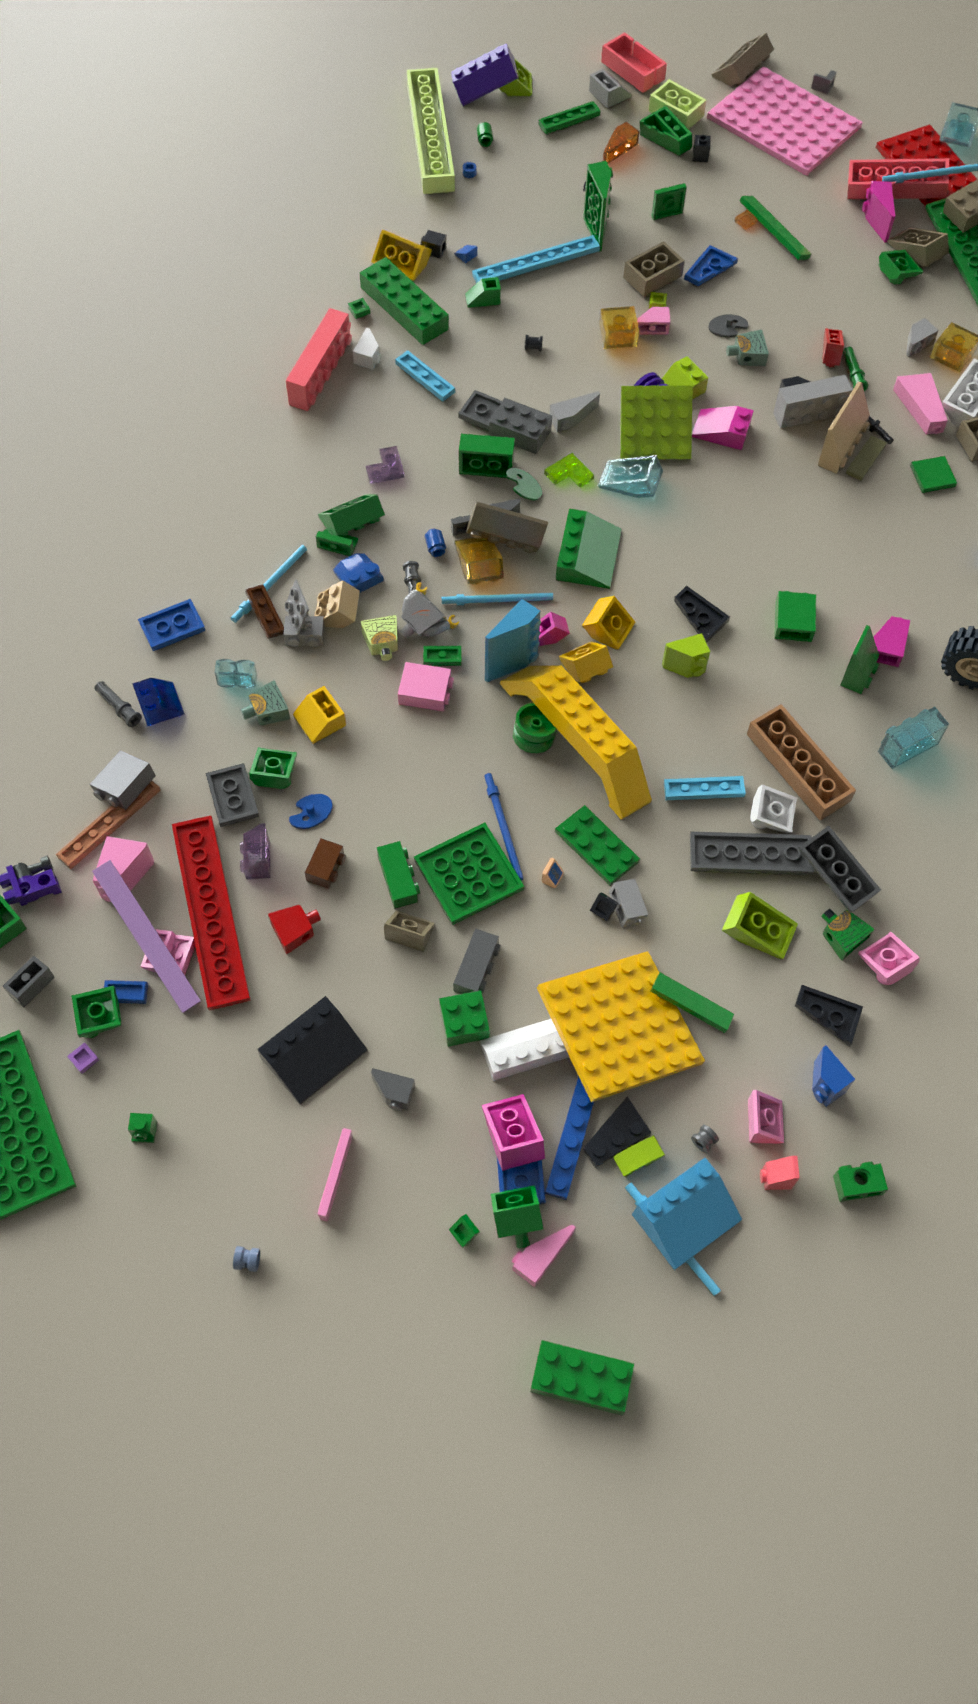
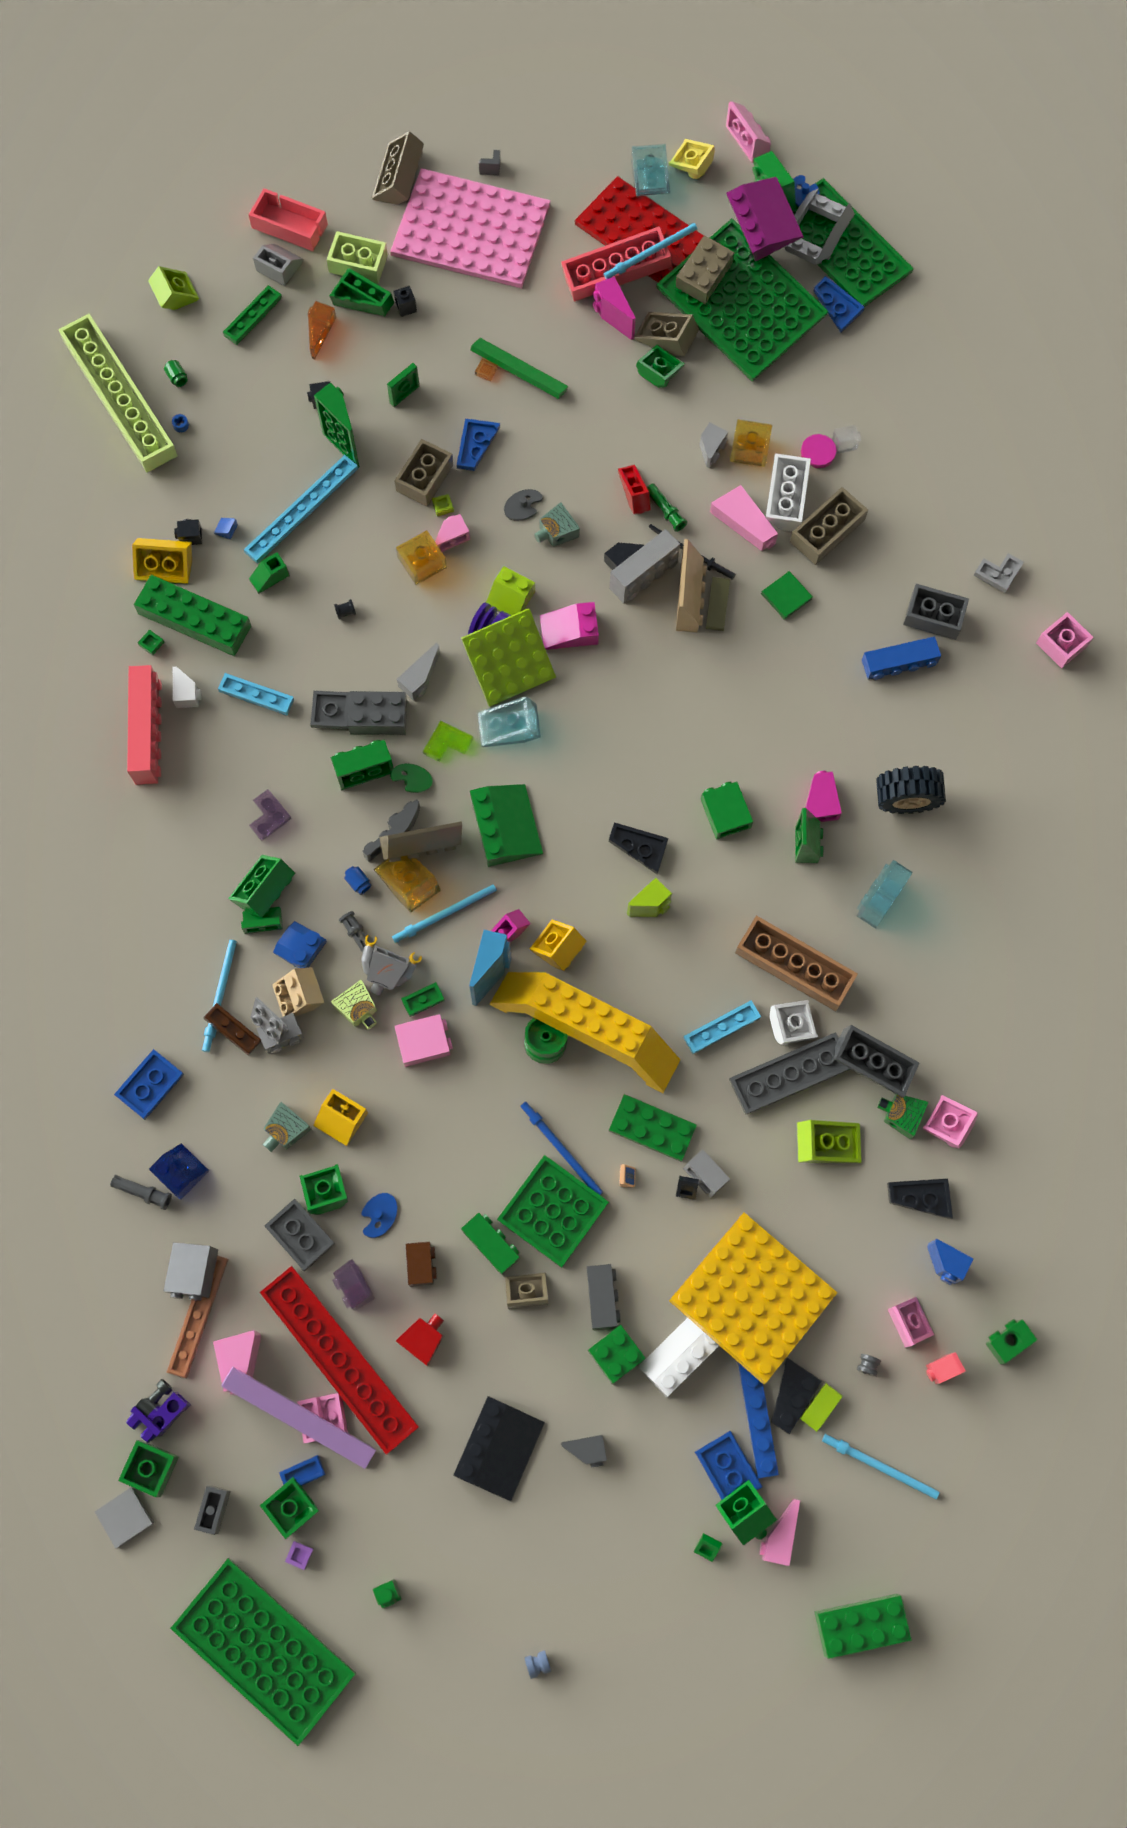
camera: 25 degrees left, 10 degrees up
(238, 673) = (244, 1108): clear light blue brick -> none
(335, 1174) = (575, 1552): bright pink tile -> none
(484, 74) = (143, 302): dark purple slope -> none
(513, 1132) = (708, 1440): dark pink slope -> none
(609, 622) = (560, 894): yellow slope -> none
(688, 1213) = (885, 1441): dark azure slope -> none
(692, 1002) = (804, 1244): green tile -> none

